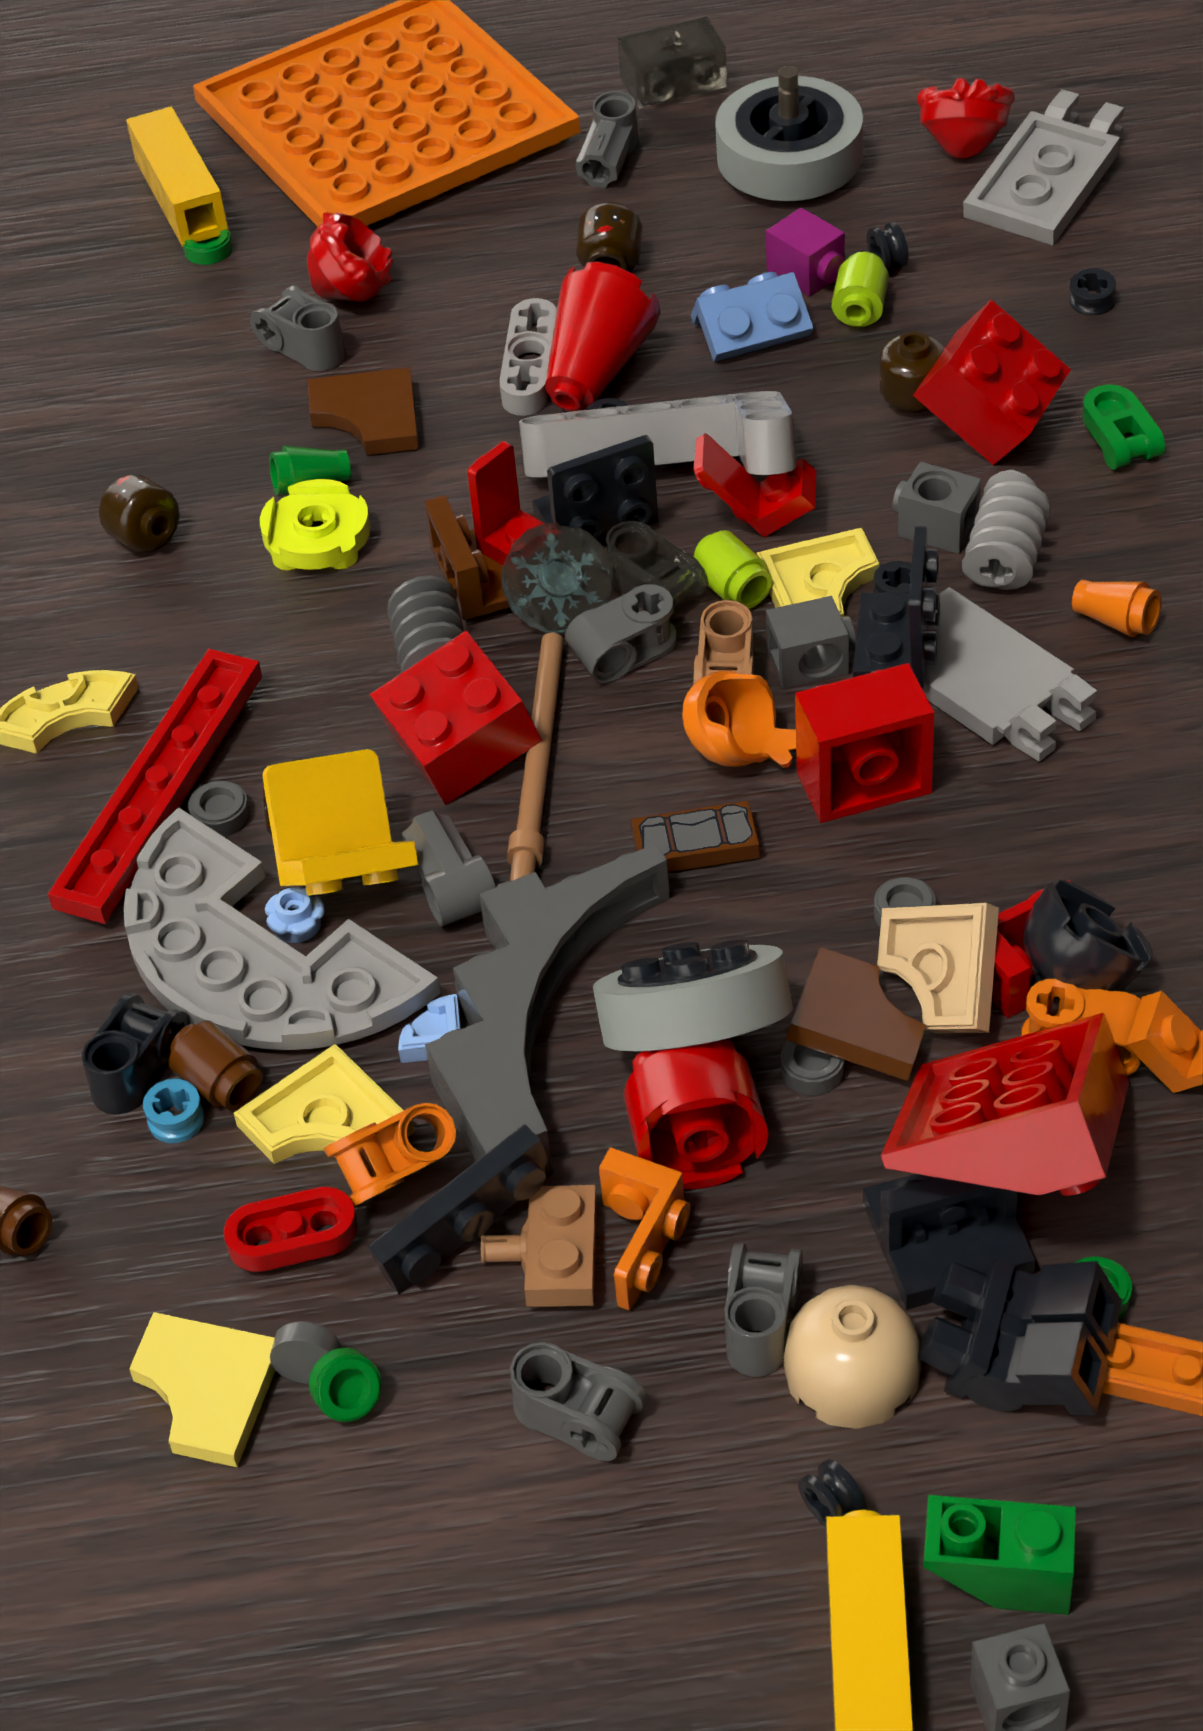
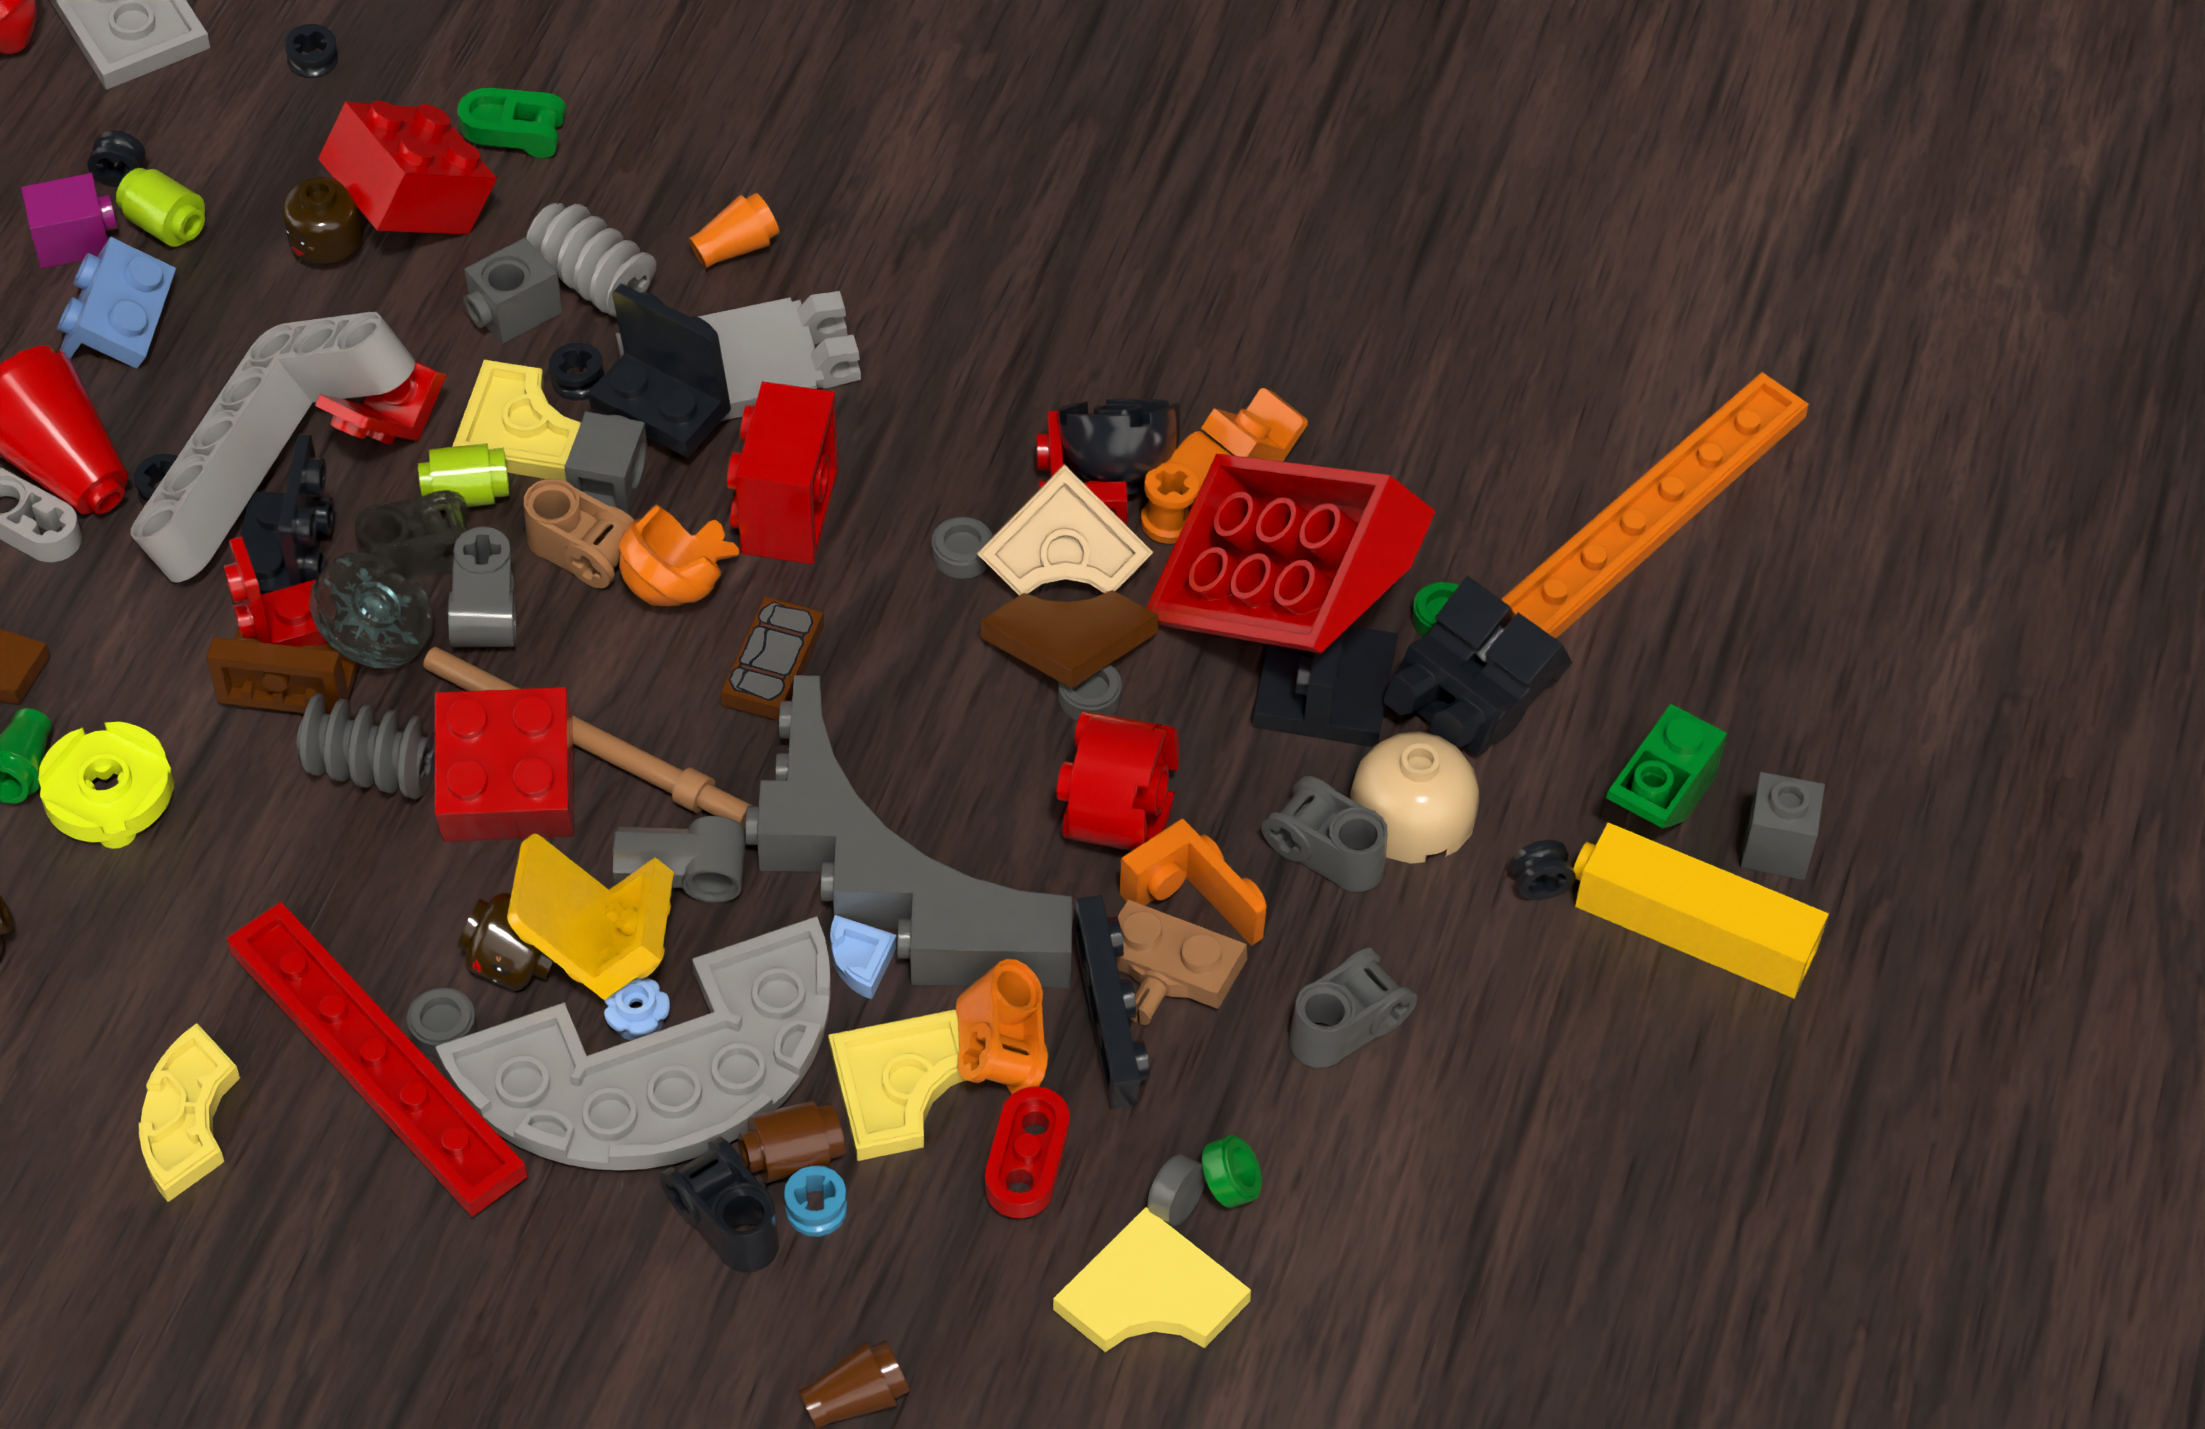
camera: 70 degrees left, 5 degrees up
(692, 996) = (1010, 720): light grey wheel -> none

